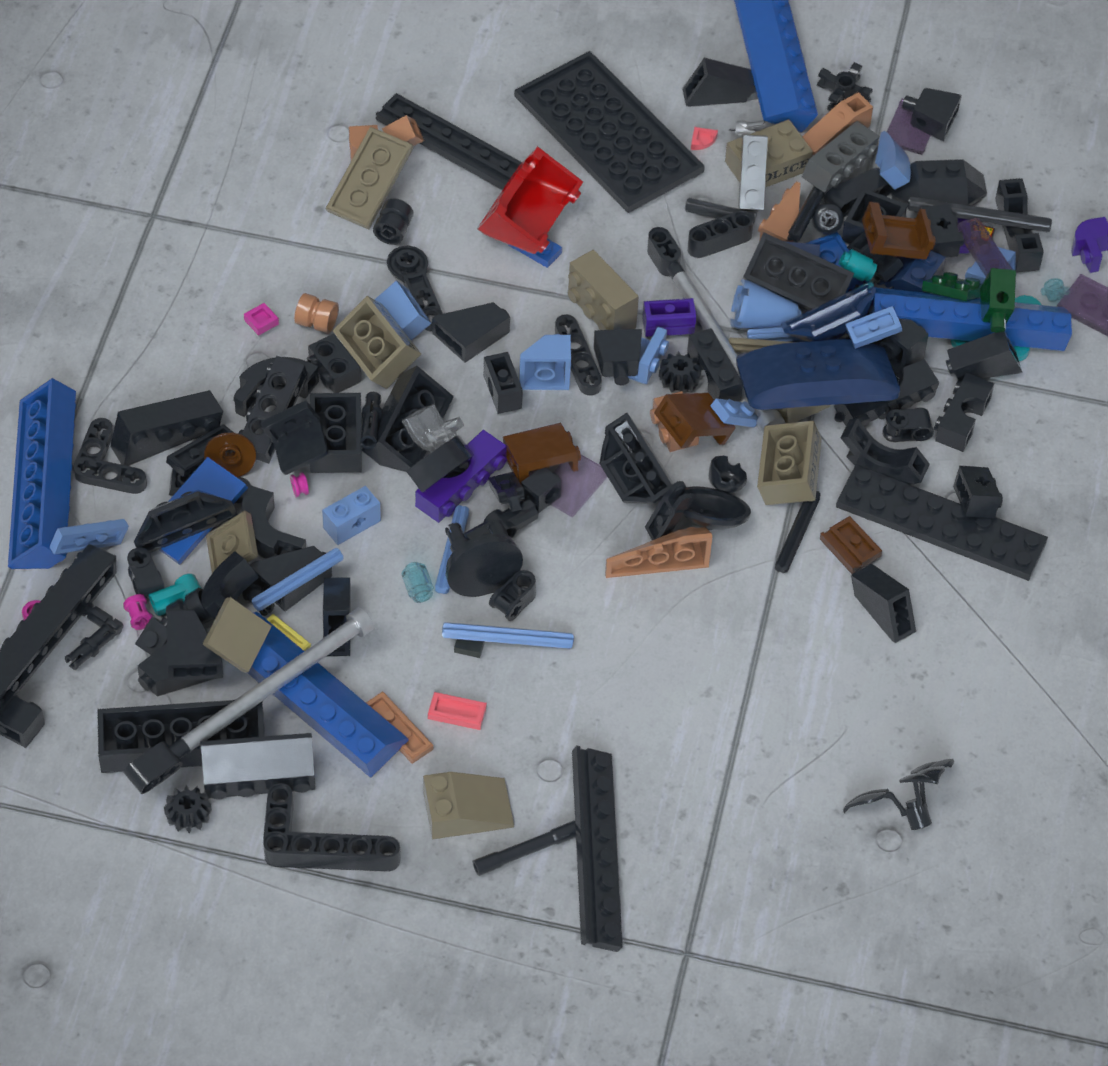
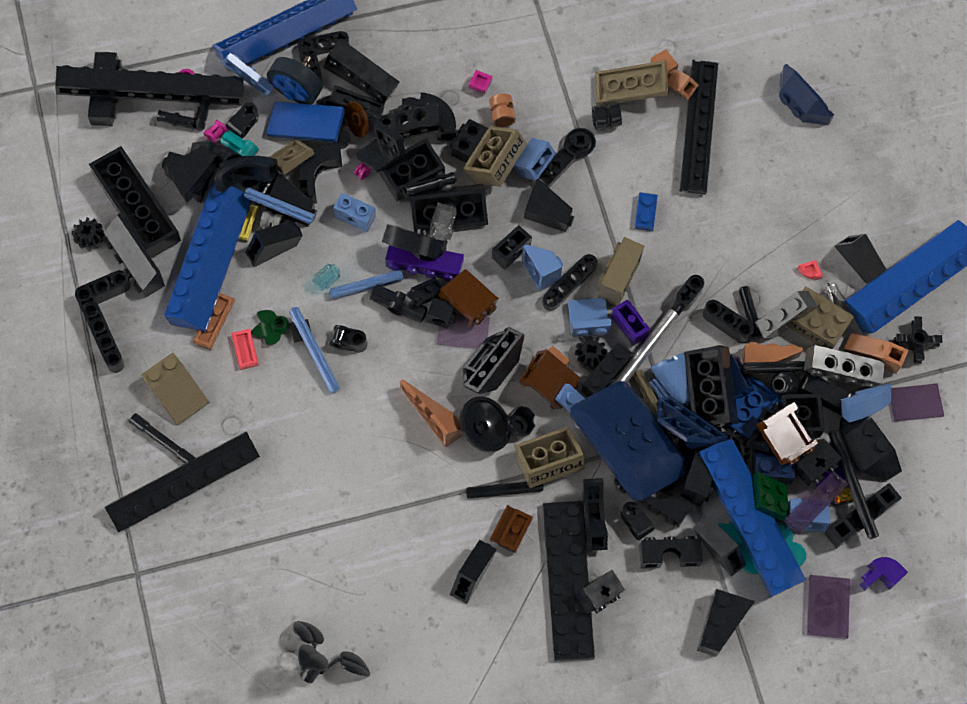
camera: 60 degrees right, 15 degrees up
(137, 486) = (295, 80): none -> black wheel
(164, 760) = (101, 200): flat silver piece -> none
(182, 518) = (287, 116): black wedge -> none
(237, 635) = (205, 192): dark tan tile -> none
(304, 605) = (269, 219): none -> light grey wheel
(443, 673) = (267, 328): none -> dark green plate
(482, 562) = (352, 306): black piece -> none
(490, 40) = (802, 98): none -> dark blue wedge
(531, 203) = (667, 190): red windscreen -> none
(609, 131) = (774, 208): black plate -> none
(618, 353) = (578, 305): black torso -> none
(669, 511) = (458, 399): black hinge -> none
(858, 264) = (747, 422): teal brick -> none
(873, 327) = (685, 456): medium blue plate -> none
(933, 111) = (933, 410): black torso -> none
(998, 298) = (764, 525): dark green torso -> none
(1054, 289) = (822, 563): clear light blue plate -> none
(1069, 402) = (722, 619): none -> black wedge

